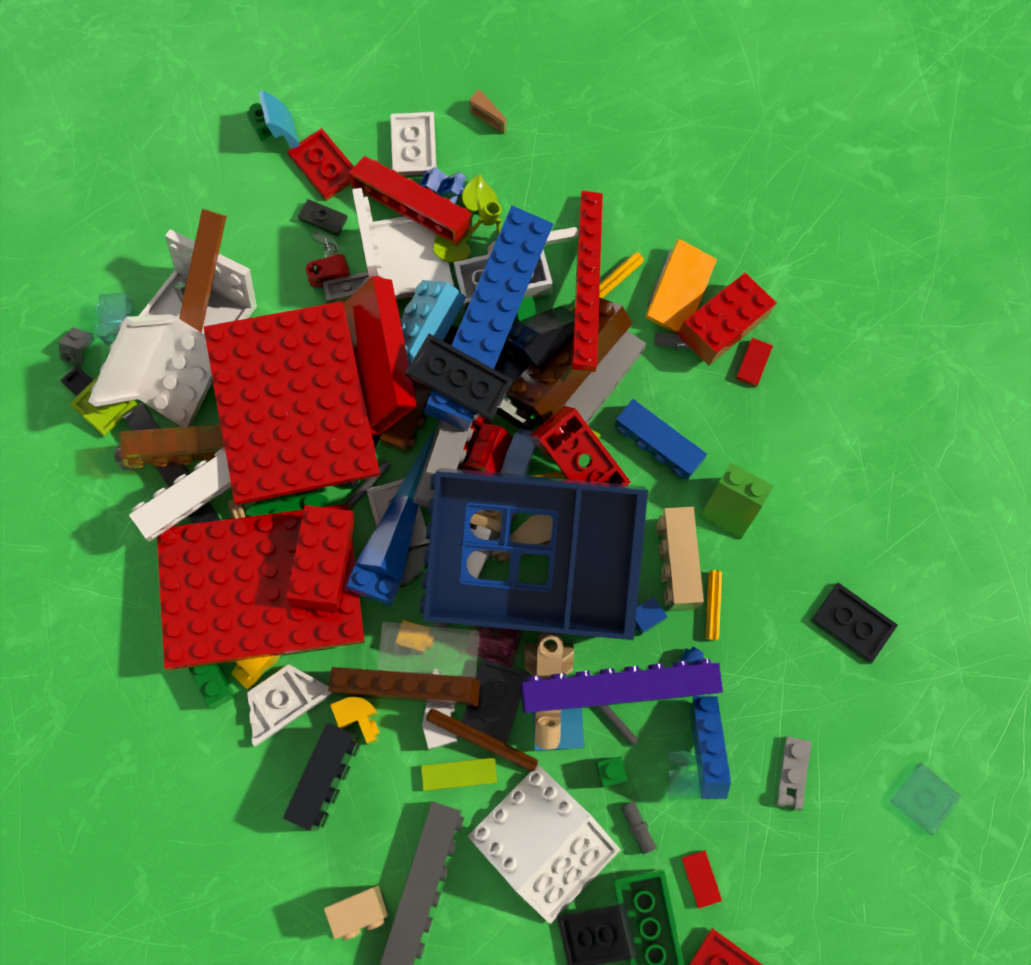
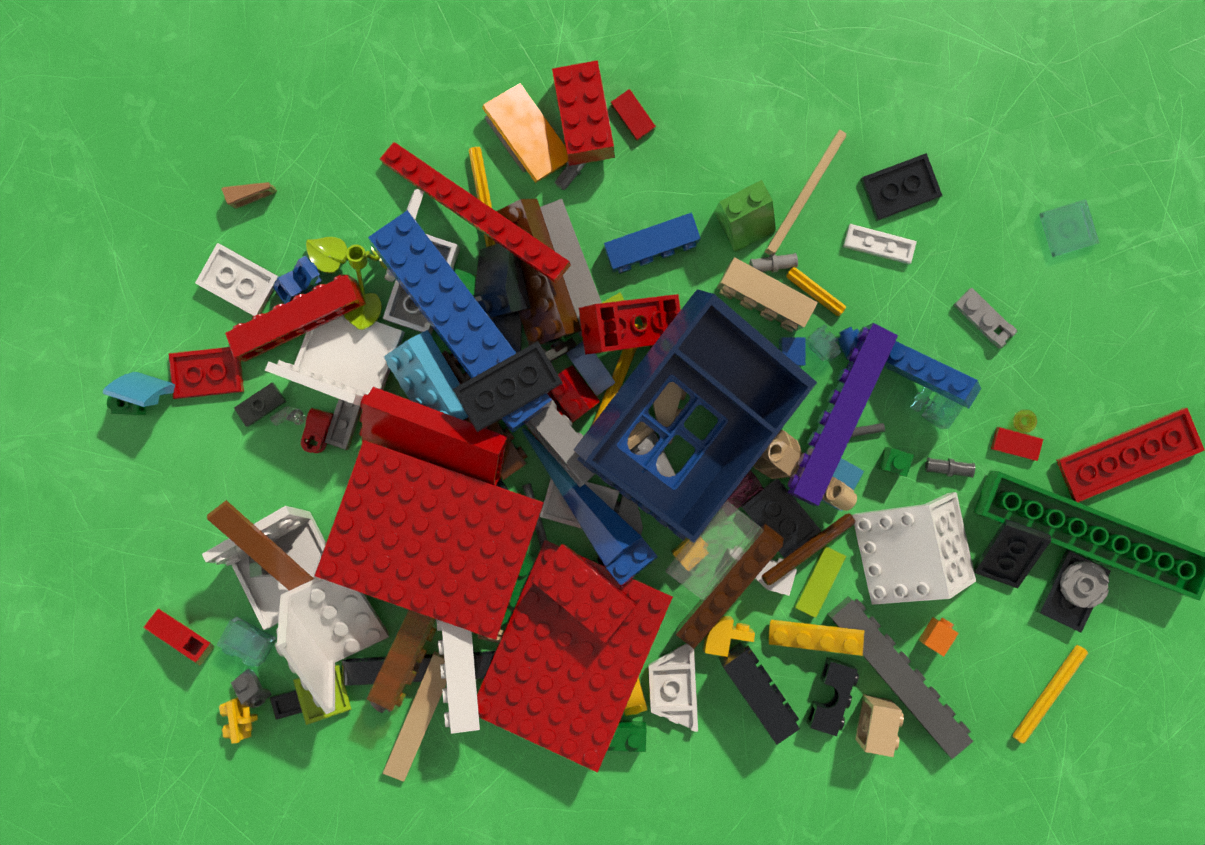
camera: 60 degrees left, 15 degrees up
(41, 351) = (239, 720): none -> yellow hips
(89, 266) = (179, 637): none -> red slope
(118, 493) = (417, 720): none -> tan tile
(337, 860) = (829, 716): none -> black arch
(405, 800) = (816, 637): none -> yellow plate
(476, 919) = (939, 635): none -> orange brick
(672, 639) = (823, 344): none -> clear light blue brick
(713, 553) = (774, 263): none -> light grey pin
(735, 872) = (1031, 421): none -> clear yellow plate
(790, 541) = (805, 192): none -> tan tile
(792, 635) = (879, 244): none -> white tile

